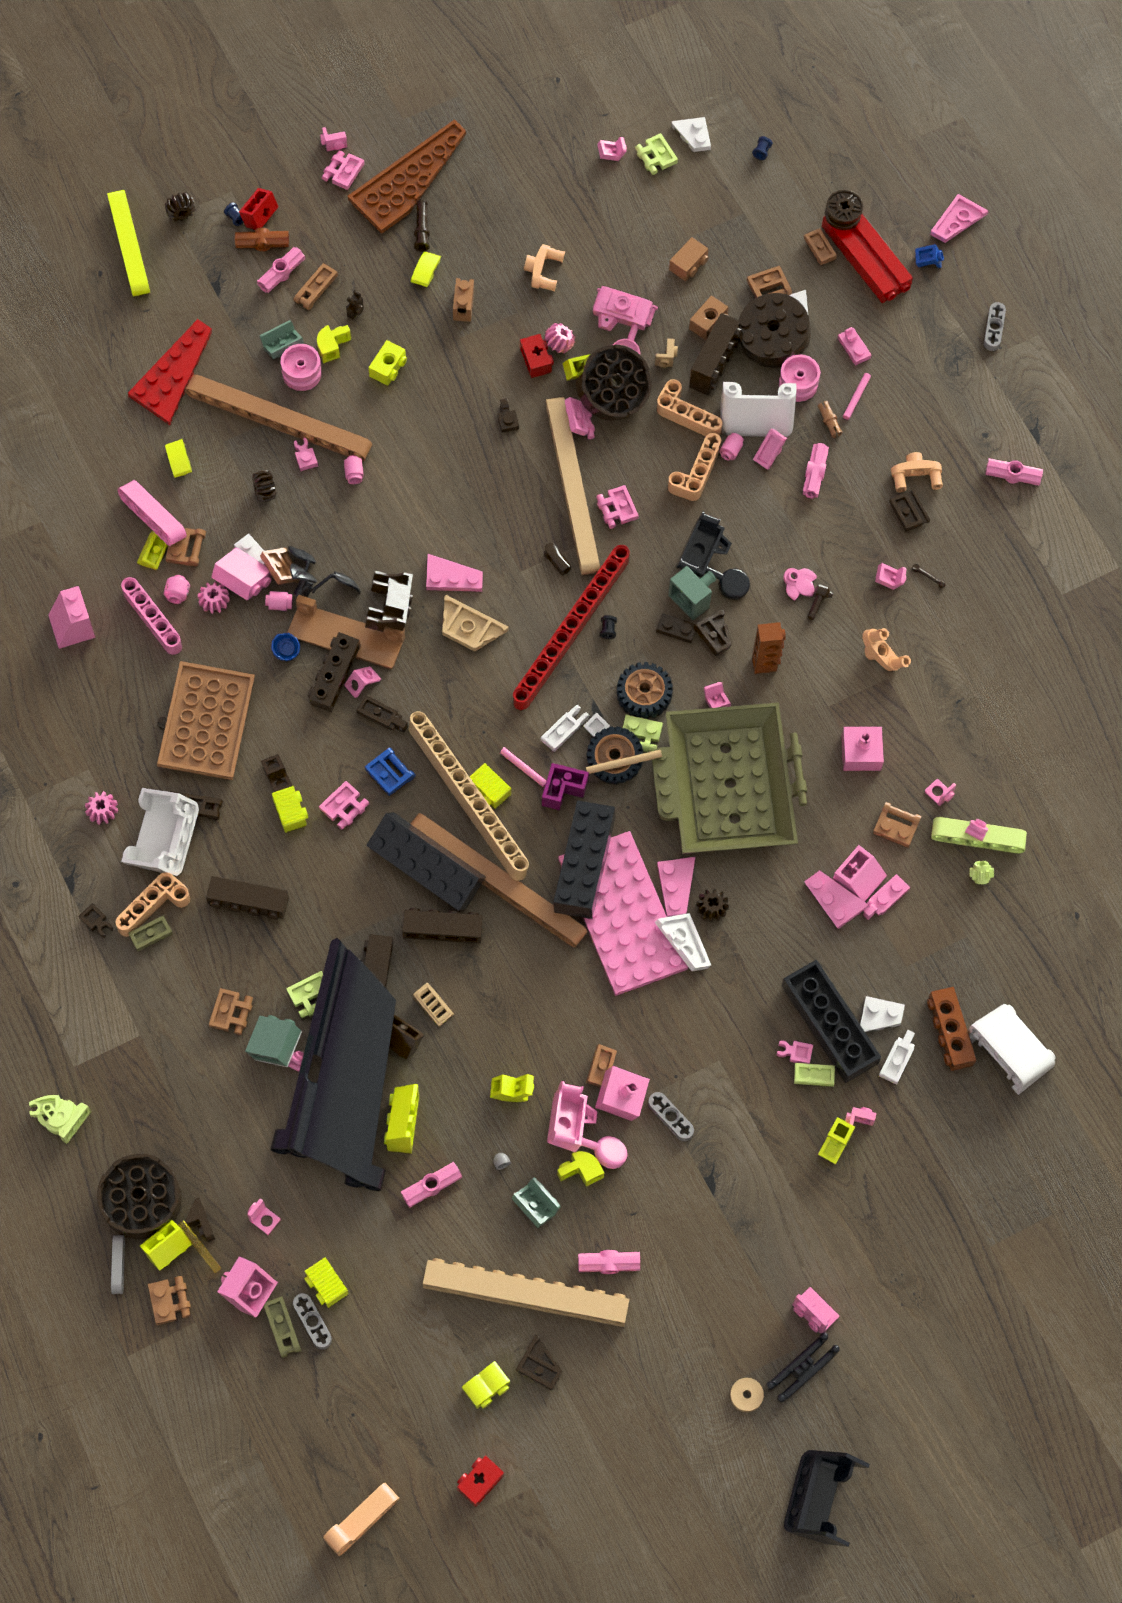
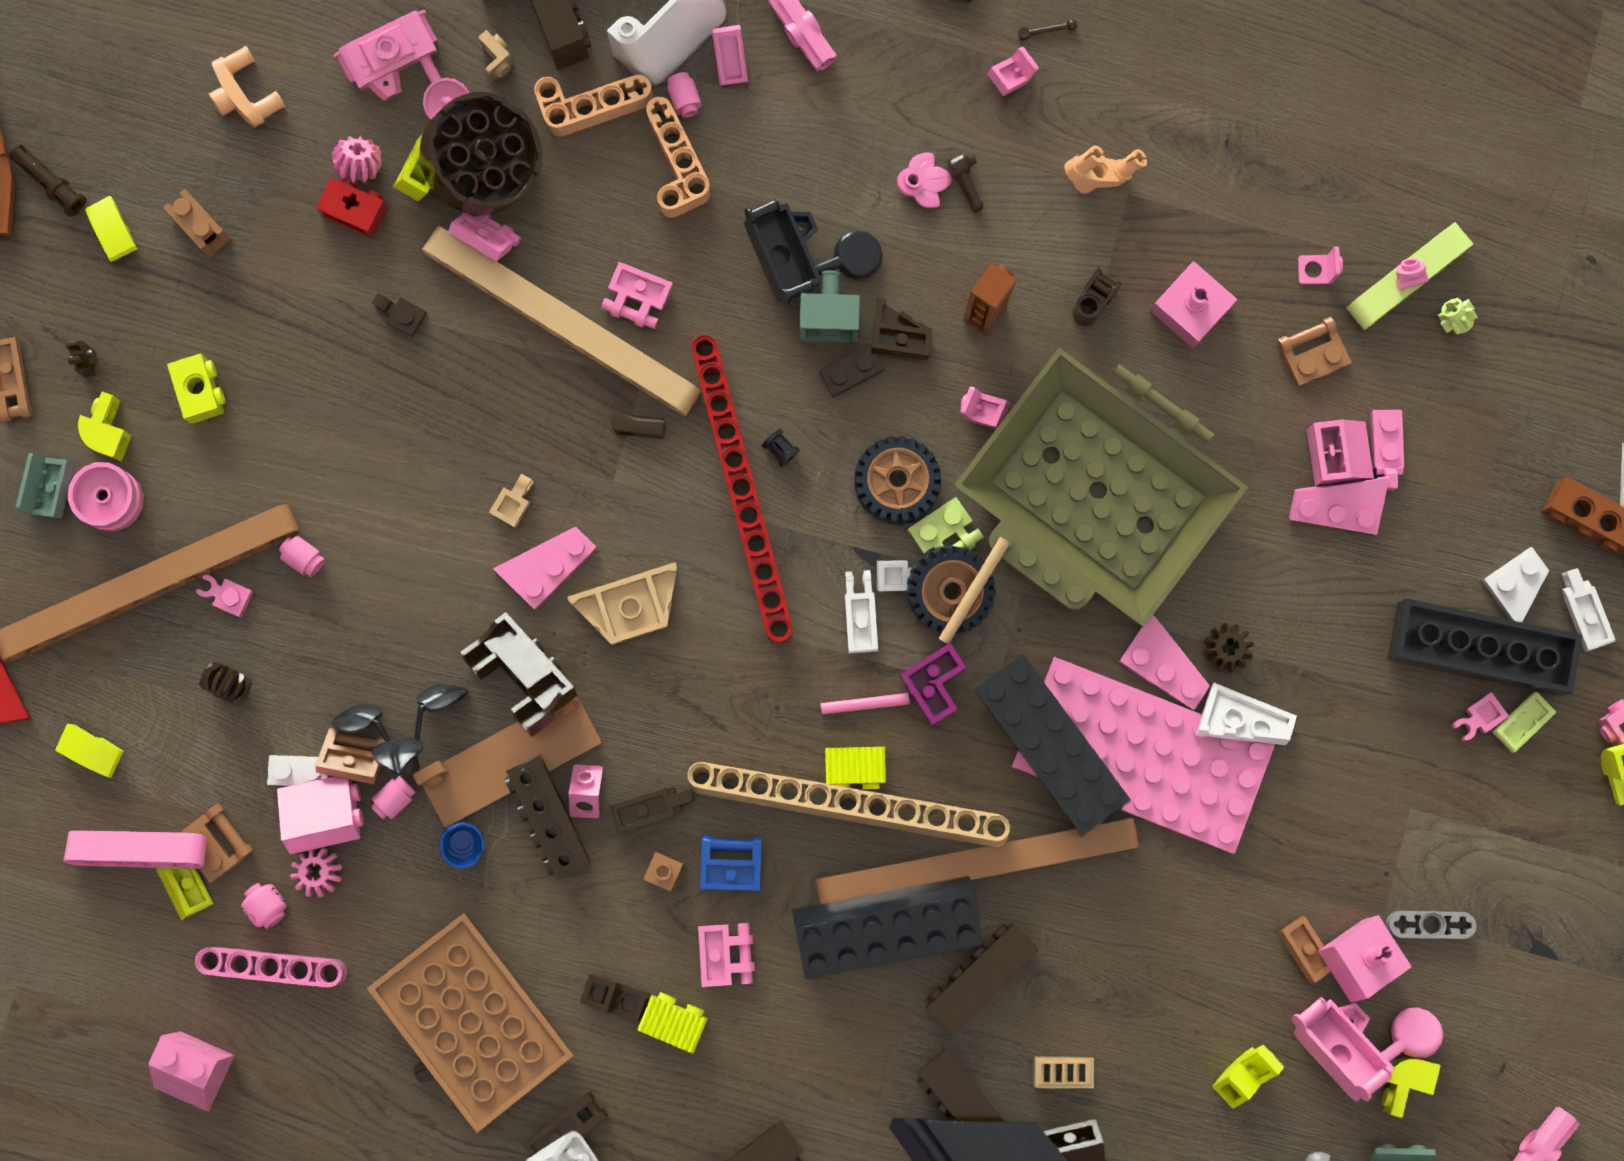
camera: 45 degrees left, 15 degrees up
(357, 744) = (663, 871): none -> medium nougat brick
(465, 536) = (510, 504): none -> tan plate
(824, 701) = (1097, 294): none -> dark brown piece

